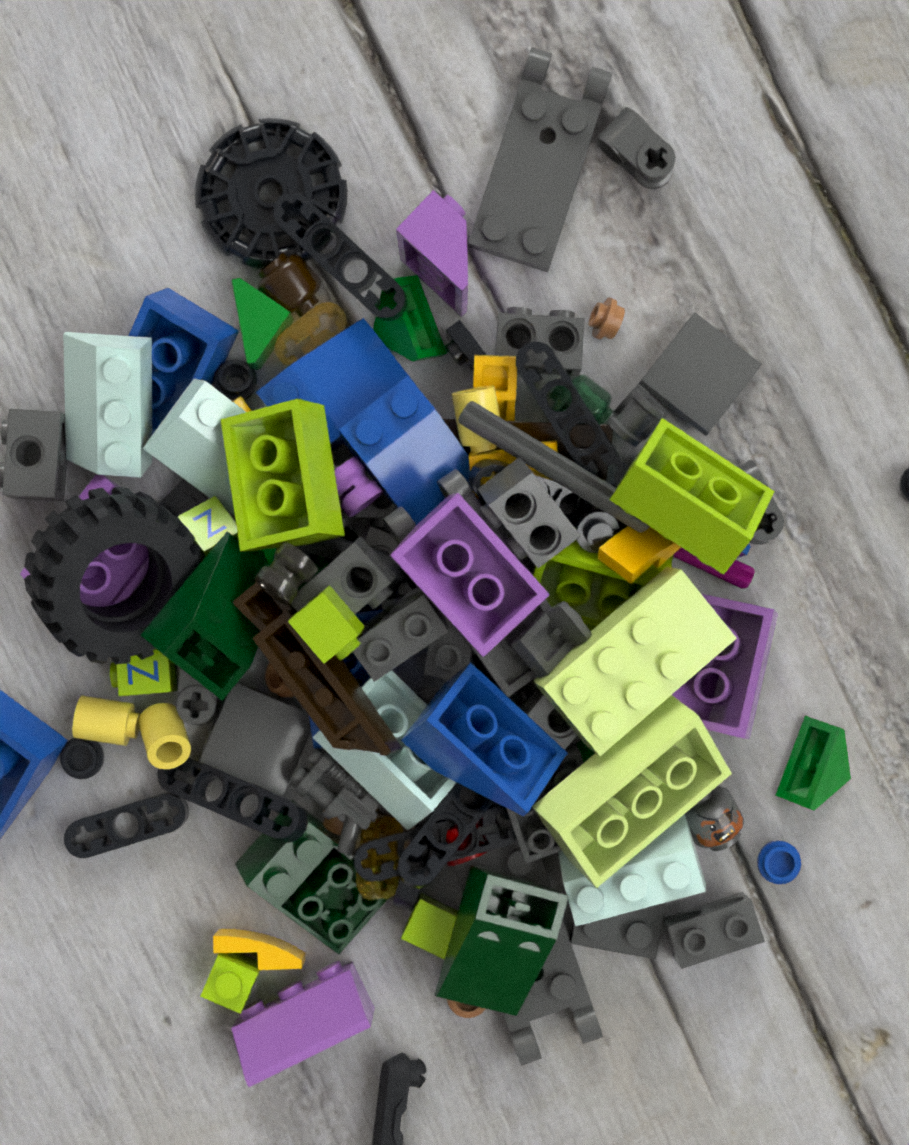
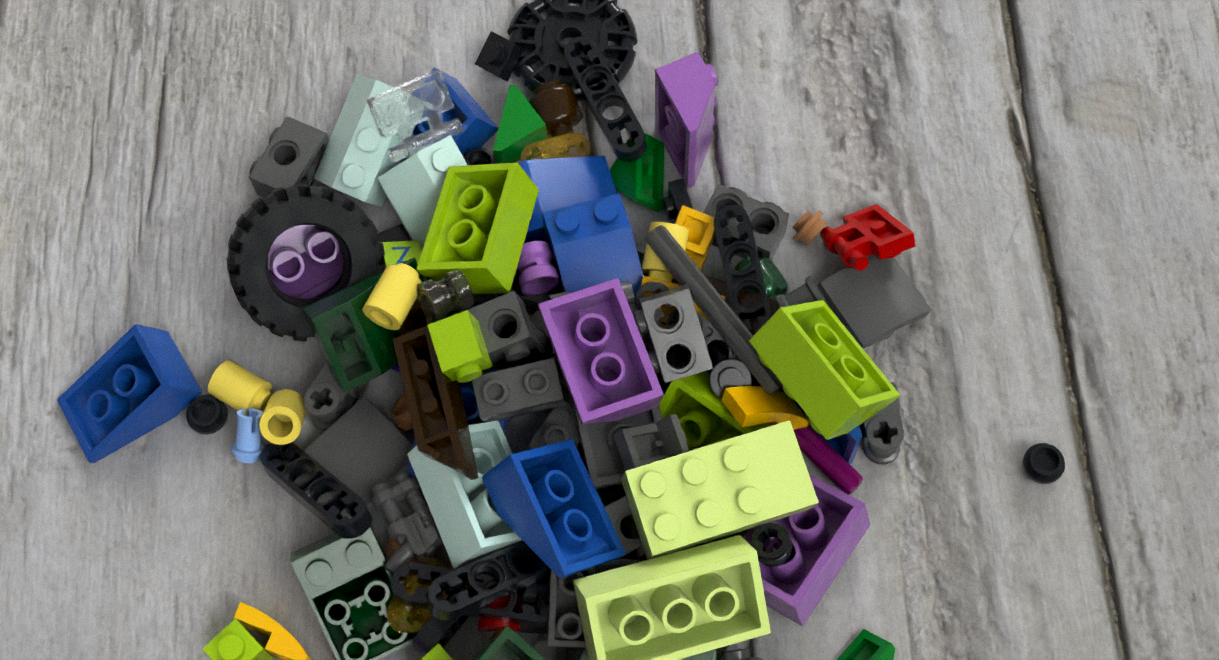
camera: 25 degrees right, 20 degrees down
(100, 844) = (185, 493): black beam -> none
(140, 774) = (248, 436): none -> light blue pin
(144, 676) = (292, 362): lime brick -> none
(147, 362) = (410, 105): none -> clear plate
(201, 243) = (499, 56): none -> black plate
(232, 592) = (392, 296): none -> light yellow brick
(533, 179) = (789, 106): dark grey hinge -> none
(632, 144) = (886, 110): dark grey piece -> none
(680, 301) = (865, 234): none -> red plate
(690, 694) = (765, 532): none -> black bush

